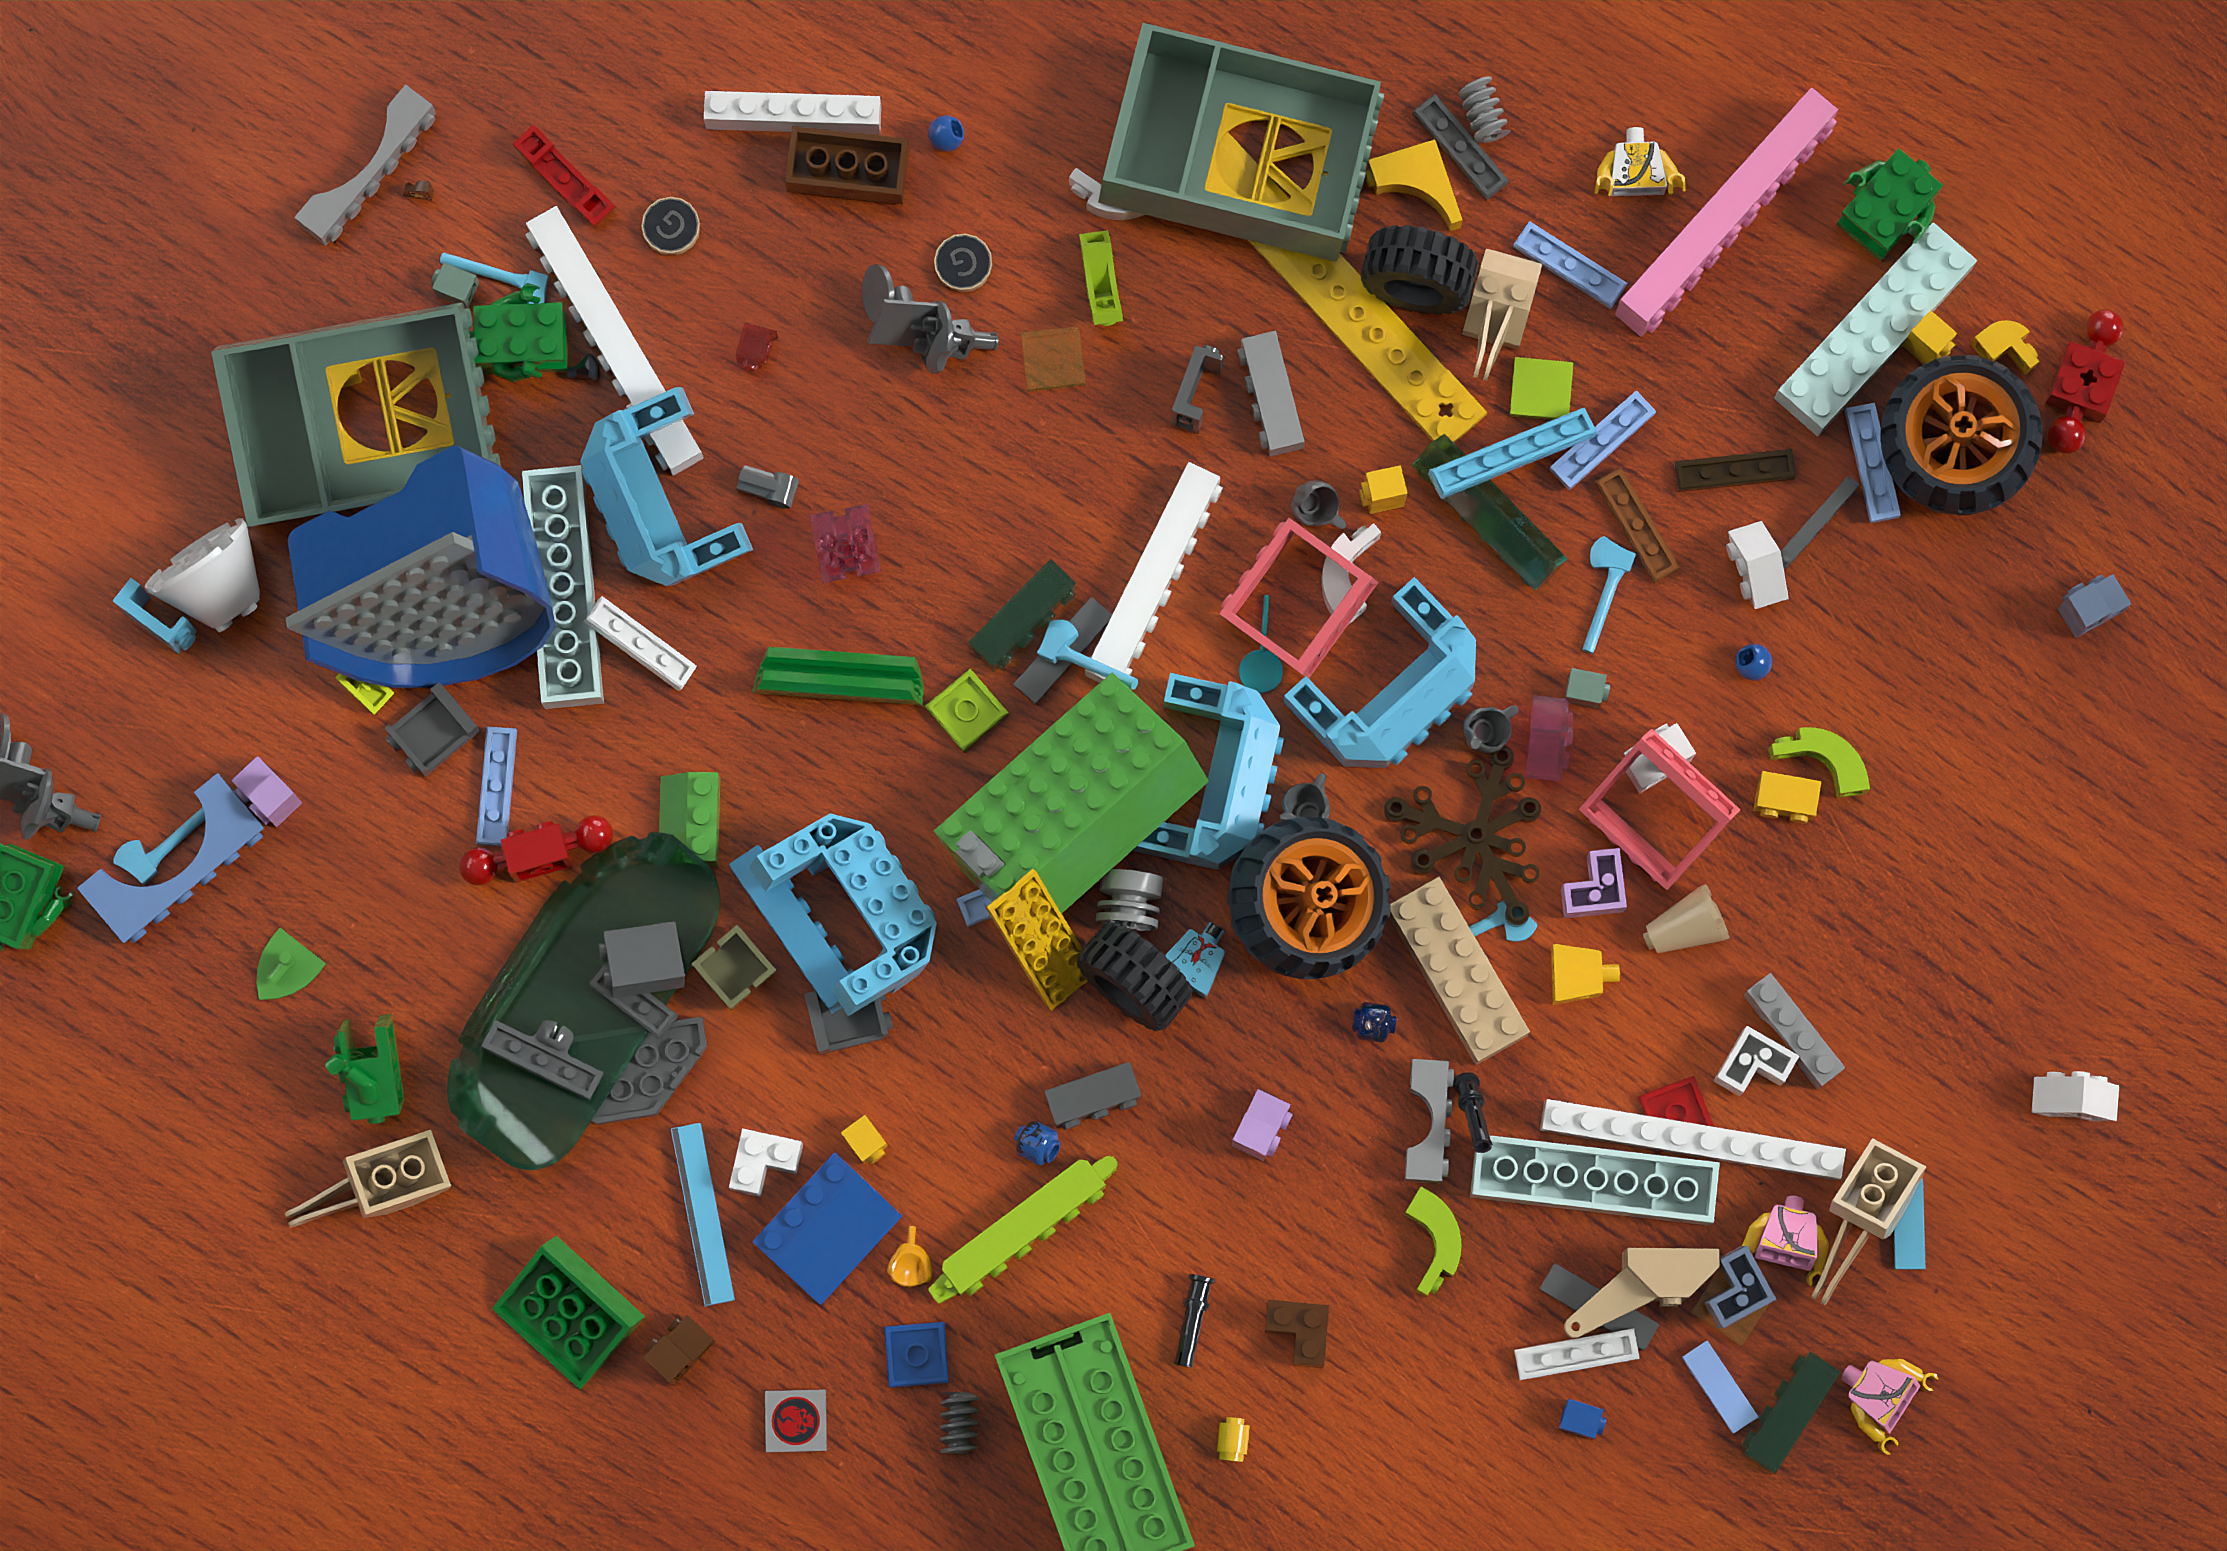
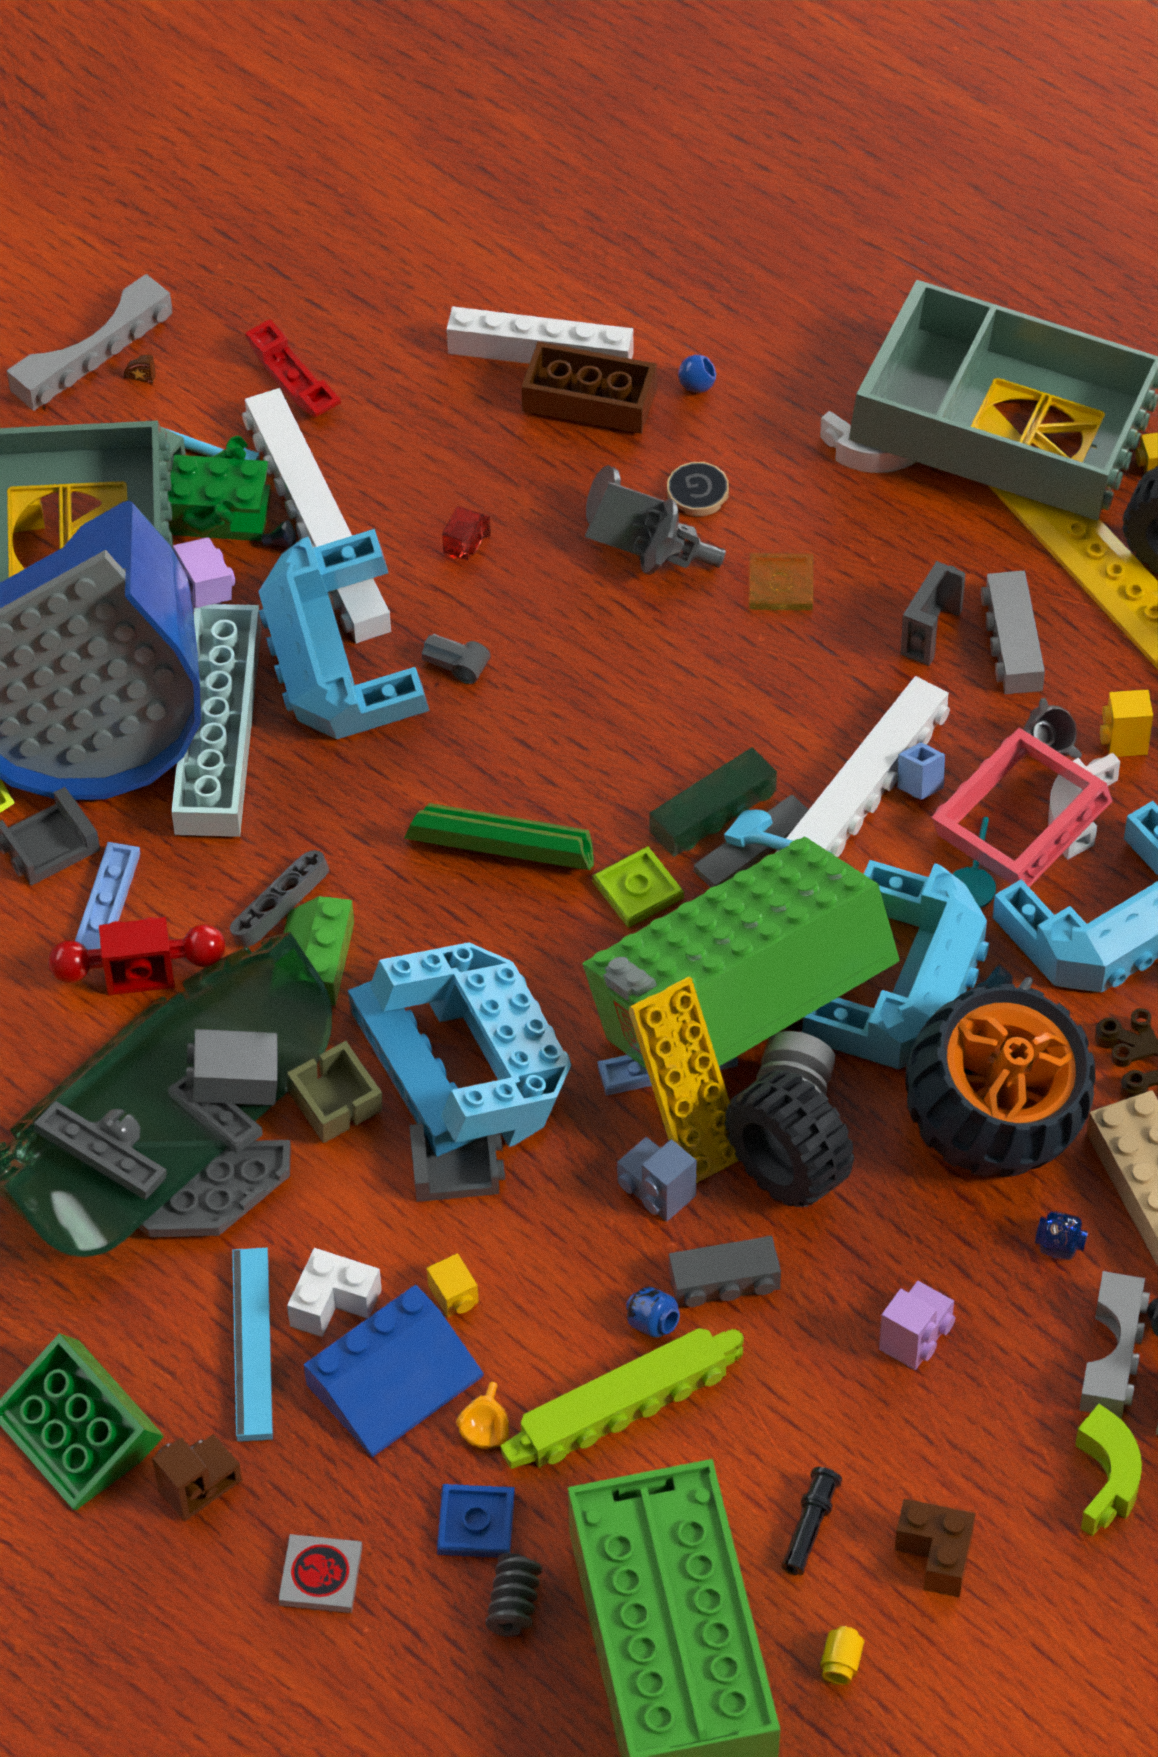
camera: 10 degrees right, 25 degrees down
(522, 440) = (206, 572): none -> lavender brick
(640, 643) = (290, 776): white tile -> none
(655, 768) = (255, 924): none -> dark grey beam
(670, 226) = (395, 426): black tile -> none
(845, 543) = (530, 707): clear pink brick -> none
(1024, 1012) = (659, 1176): none -> sand blue brick
(1100, 278) = (841, 509): lime arch -> none
(1199, 957) = (872, 1149): medium azure torso -> none
(1204, 562) = (921, 771): none -> medium blue brick
(1295, 772) = (998, 976): none -> black rock

